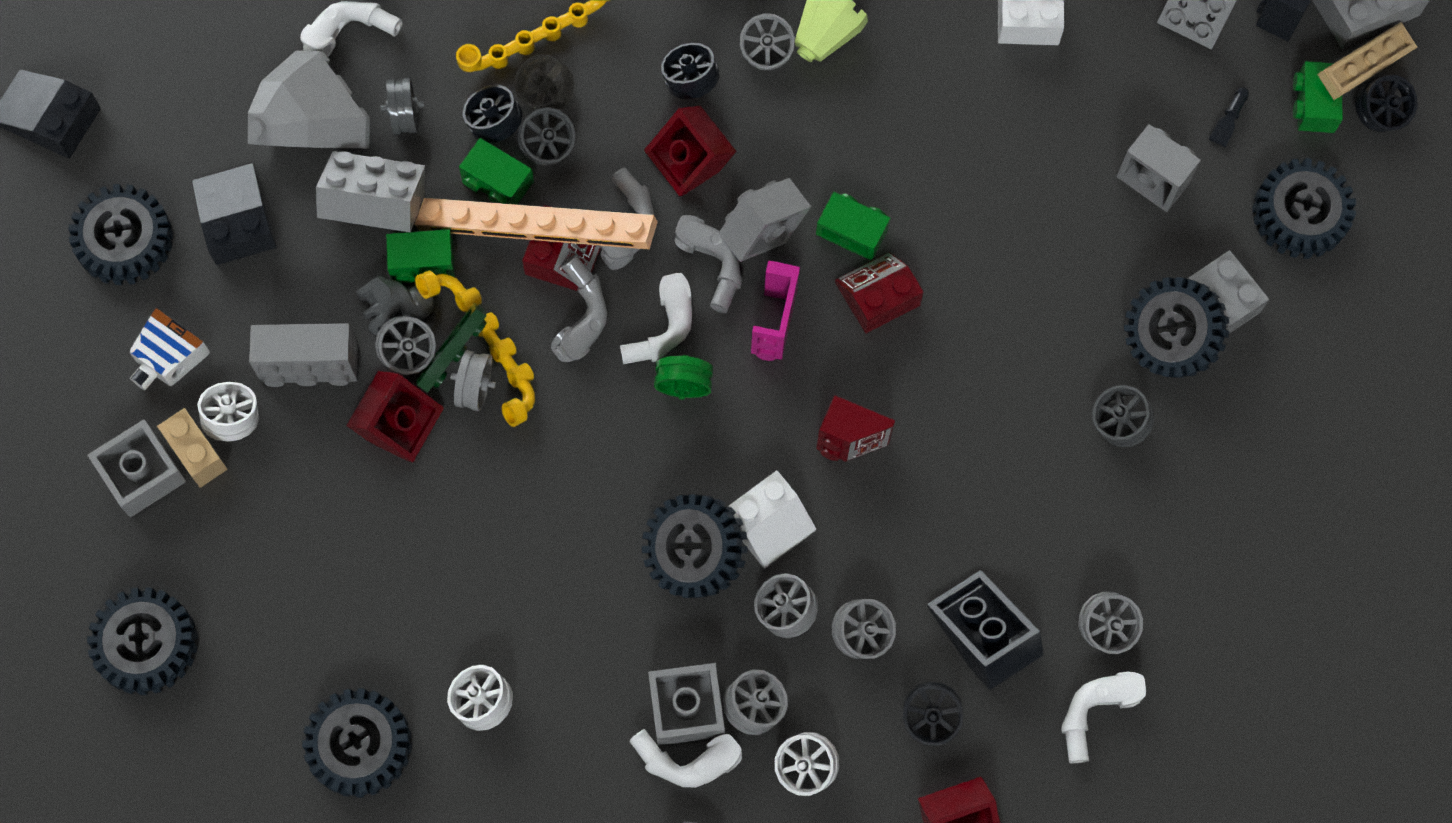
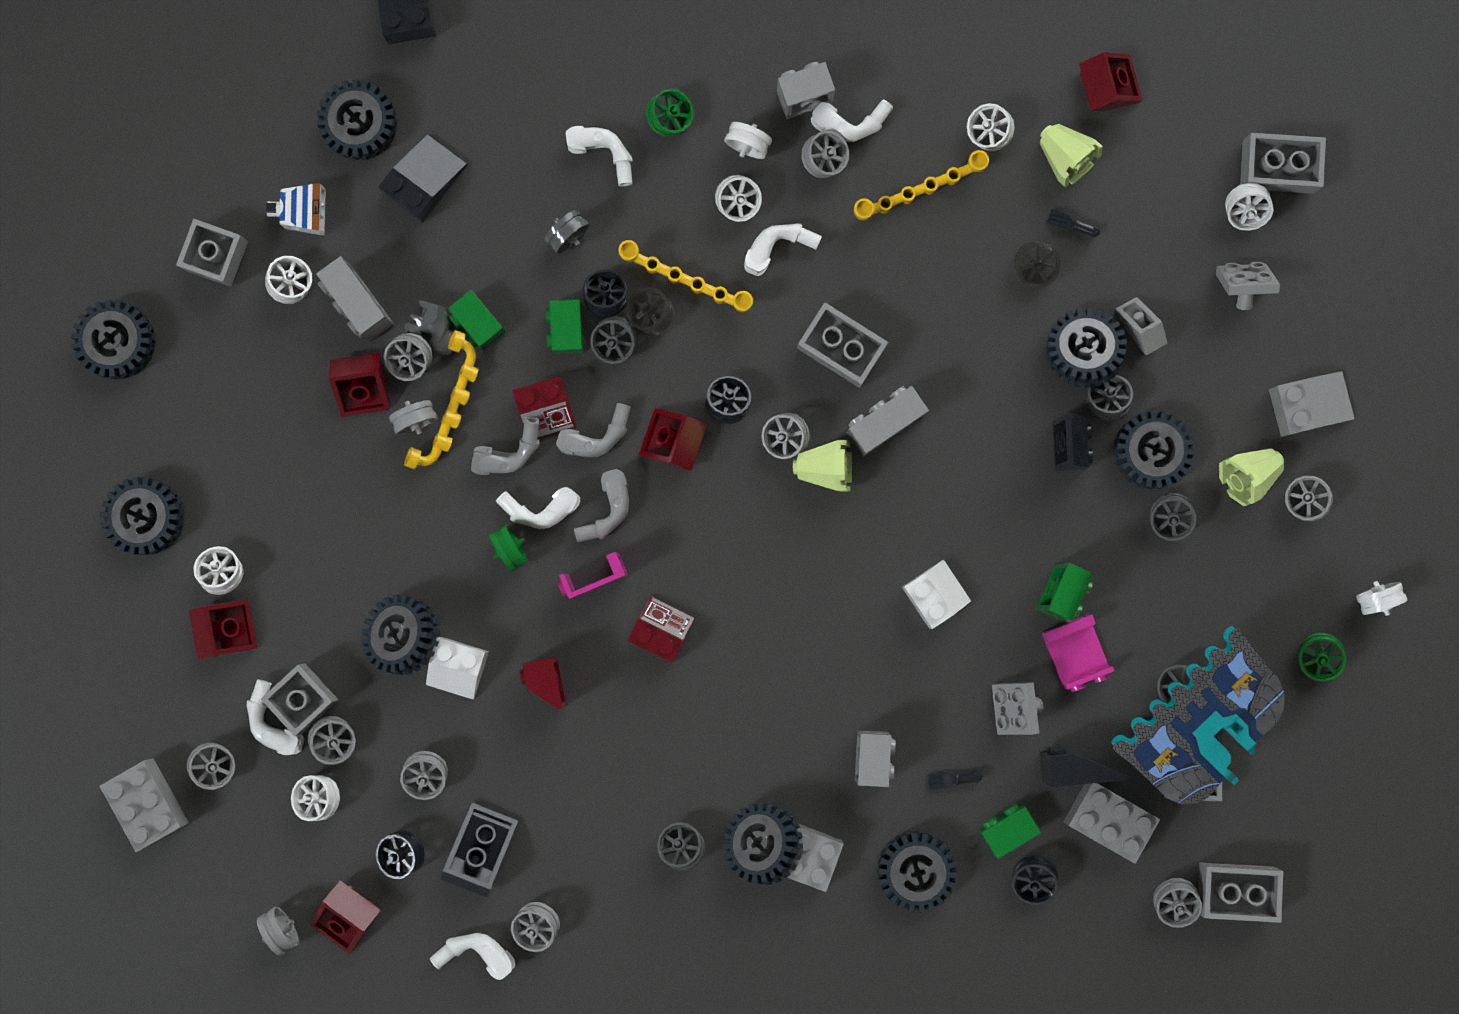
camera: 60 degrees right, 15 degrees up
(192, 447) = (249, 275): tan brick -> none
(306, 107) = (521, 171): light grey brick -> none
(370, 191) = (492, 257): light grey brick -> none
(452, 348) = (424, 389): dark green plate -> none
(537, 223) = (540, 382): light nougat plate -> none
(546, 741) = (222, 629): none -> dark red slope
(764, 218) = (649, 524): light grey brick -> none
(786, 605) = (405, 717): light grey wheel -> none
(853, 225) = (694, 582): green brick -> none
(1367, 61) = (1057, 848): tan tile -> none

